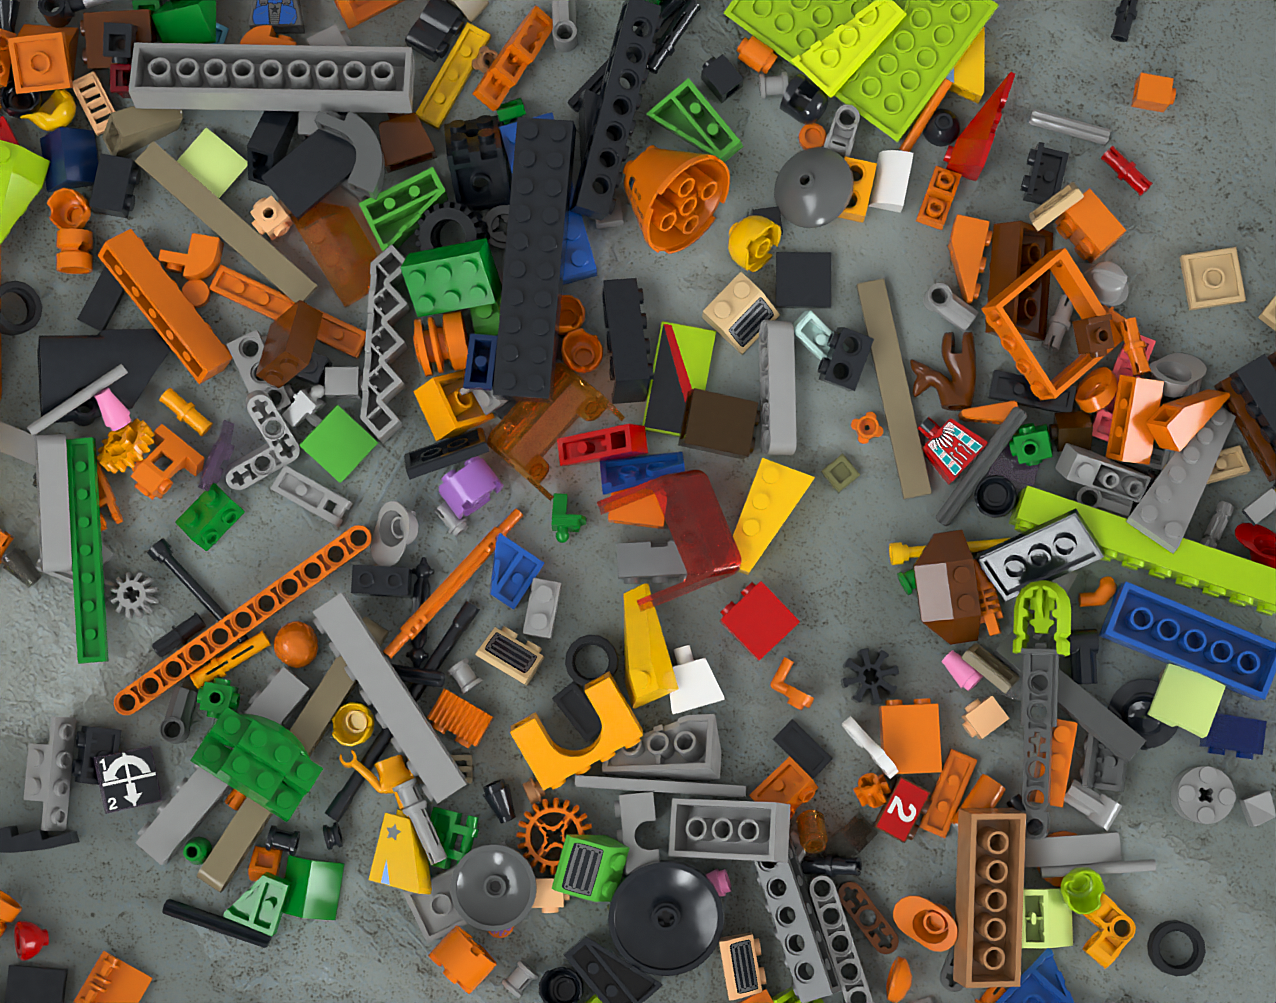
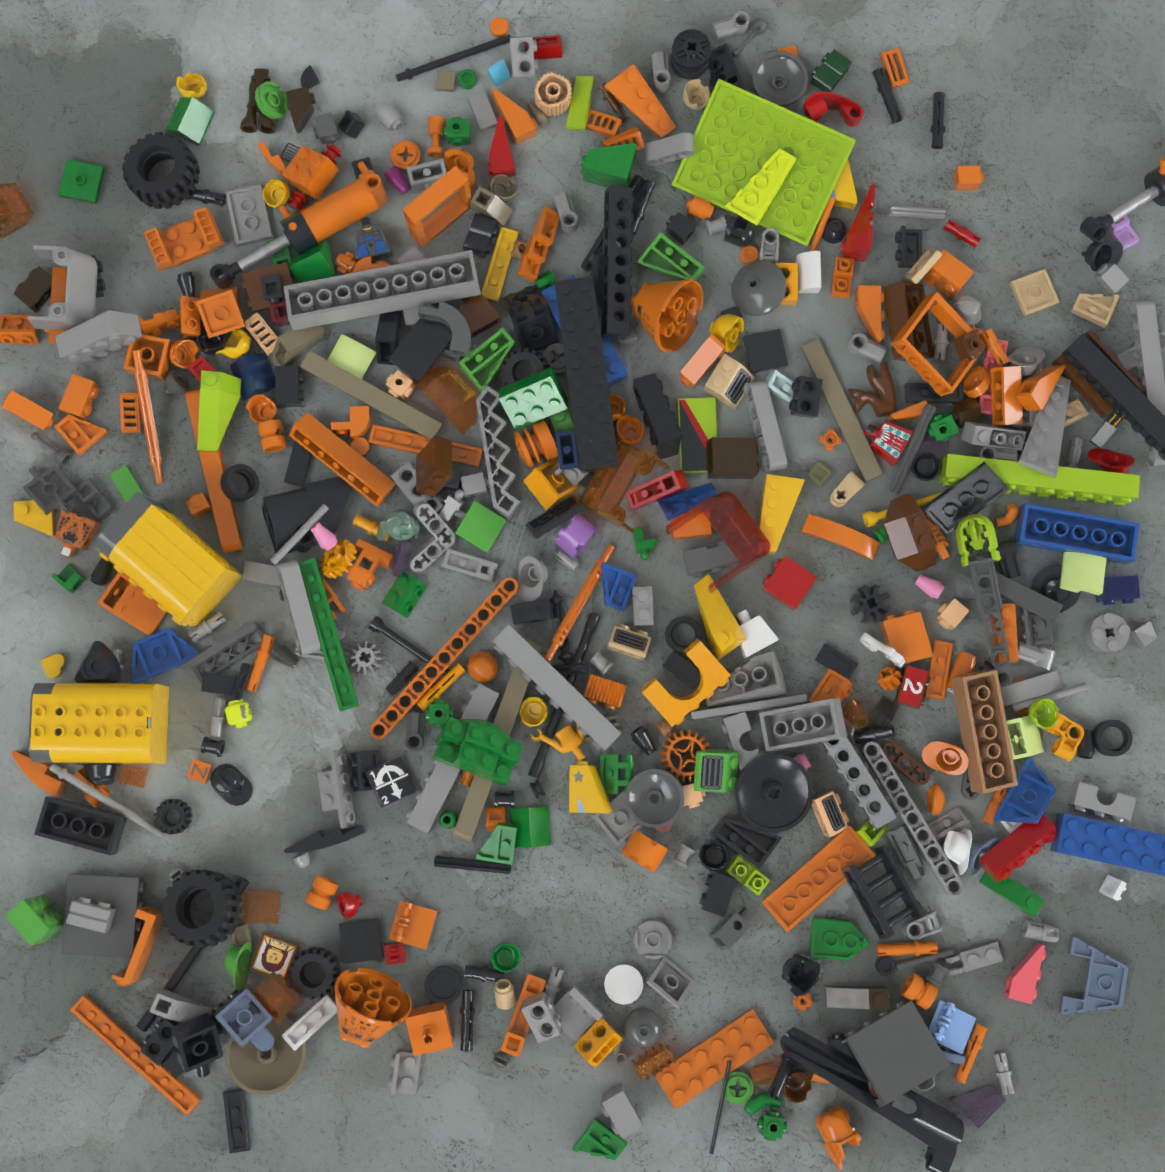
camera: 20 degrees left, 0 degrees up
(221, 418) = (398, 525): none -> sand green helmet
(234, 27) = (345, 263): none -> orange gear
(415, 808) = (590, 757): light grey pin -> none
(707, 276) = (702, 362): none -> orange slope
(796, 697) = (825, 628): orange plate -> none
(851, 569) = (840, 535): none -> orange slope
(877, 502) = (847, 488): none -> tan piece
(990, 667) = (948, 580): dark tan tile -> none
(1135, 951) = (1086, 747): none -> black cone

